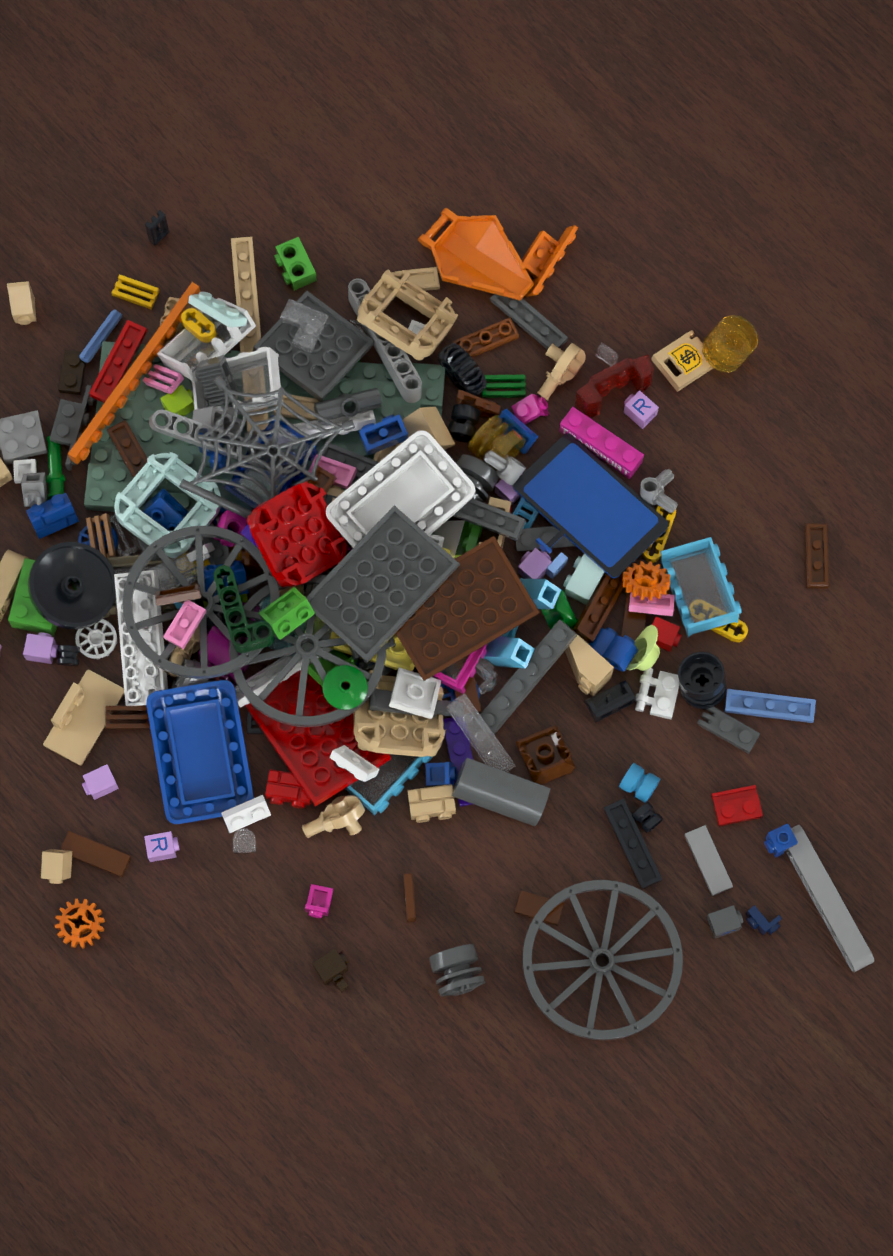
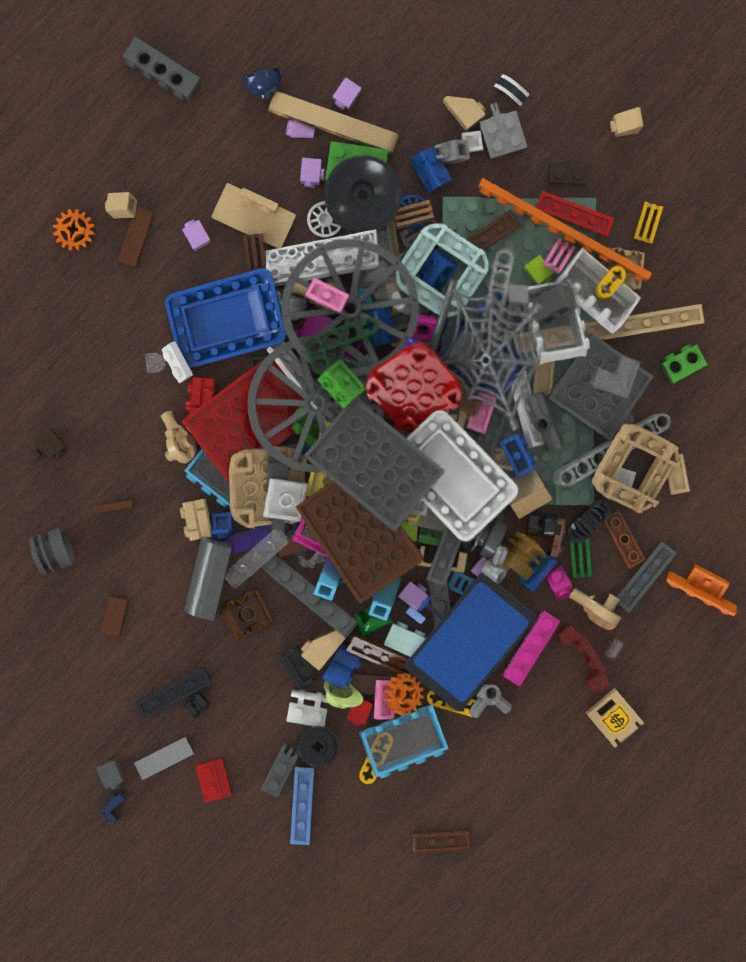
camera: 90 degrees right, 15 degrees up
(55, 478) = (467, 169): green pin -> none
(68, 655) = (306, 196): black wheel -> none
(70, 422) = (517, 176): dark grey bracket -> none
(100, 336) = (602, 195): medium blue axle -> none
(153, 230) = (702, 231): black tile -> none
(161, 846) = (144, 292): lavender brick -> none
(178, 594) = (351, 287): reddish brown tile -> none
(217, 309) = (623, 298): light aqua plate -> none
(319, 901) = (105, 430): dark pink bracket -> none
(342, 698) = (292, 436): green dish -> none
(354, 763) = (217, 452): white plate -> none
(477, 255) = (700, 527): orange windscreen -> none
(640, 409) = (565, 680): lavender brick -> none
(641, 784) = (225, 696): dark azure wheel -> none
(655, 909) = (24, 630): dark grey wheel -> none
(730, 343) = (629, 758): clear yellow wheel -> none
(779, 840) = (182, 819): blue bracket -> none
(829, 902) = (137, 859): light grey beam -> none

